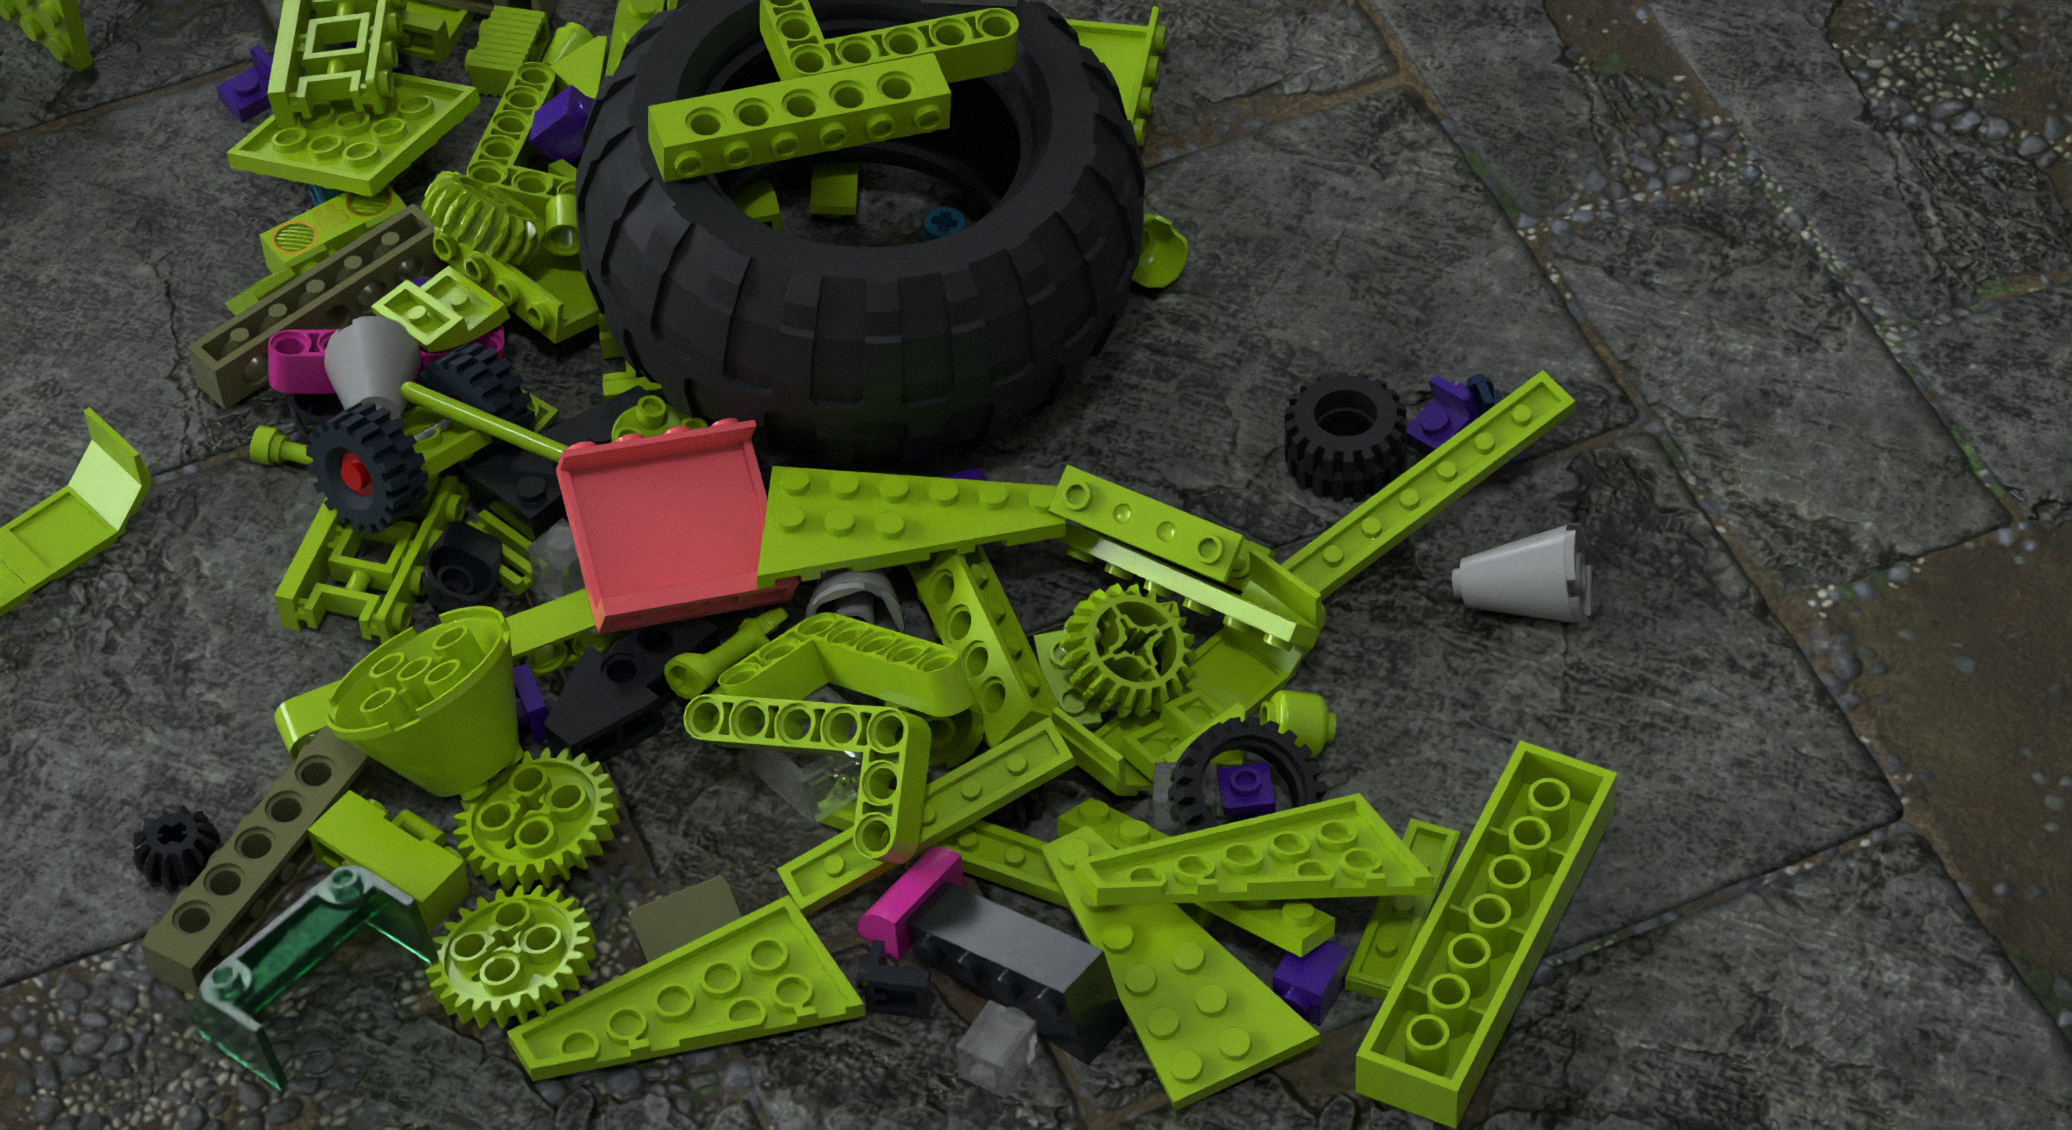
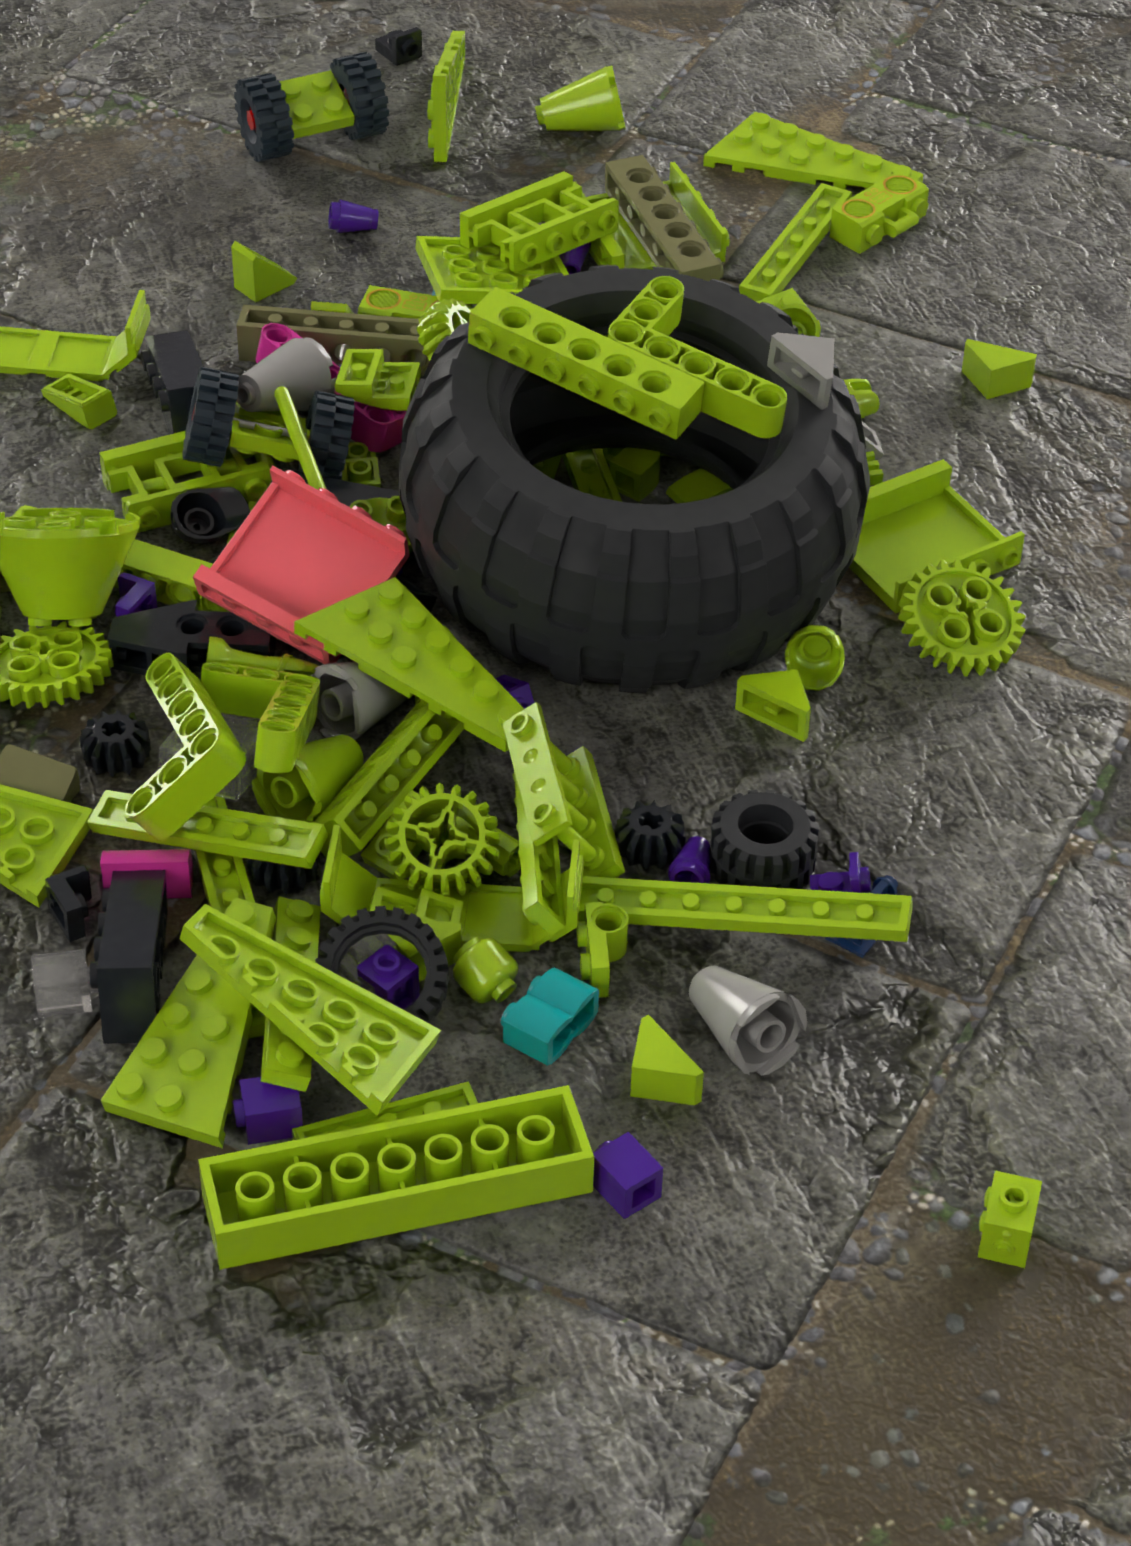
camera: 45 degrees right, 5 degrees down
(105, 189) = (351, 217): none -> dark purple cone
(113, 316) = (256, 274): none -> lime slope
(167, 573) = (81, 400): none -> lime slope
(234, 474) = (172, 371): none -> black wedge
(709, 827) = (115, 743): none -> black gear
(1175, 312) = (776, 701): none -> lime slope
(1208, 120) = (966, 607): none -> lime gear
(1247, 504) = (650, 834): none -> black gear
(1310, 502) = (692, 862): none -> dark purple cone
(1351, 632) = (605, 939): none -> lime plate
(1393, 712) = (549, 1015): none -> teal brick
(1526, 672) = (663, 1069): none -> lime slope
(1637, 769) = (627, 1175): none -> dark purple brick
(1911, 552) = (1008, 1218): none -> lime head

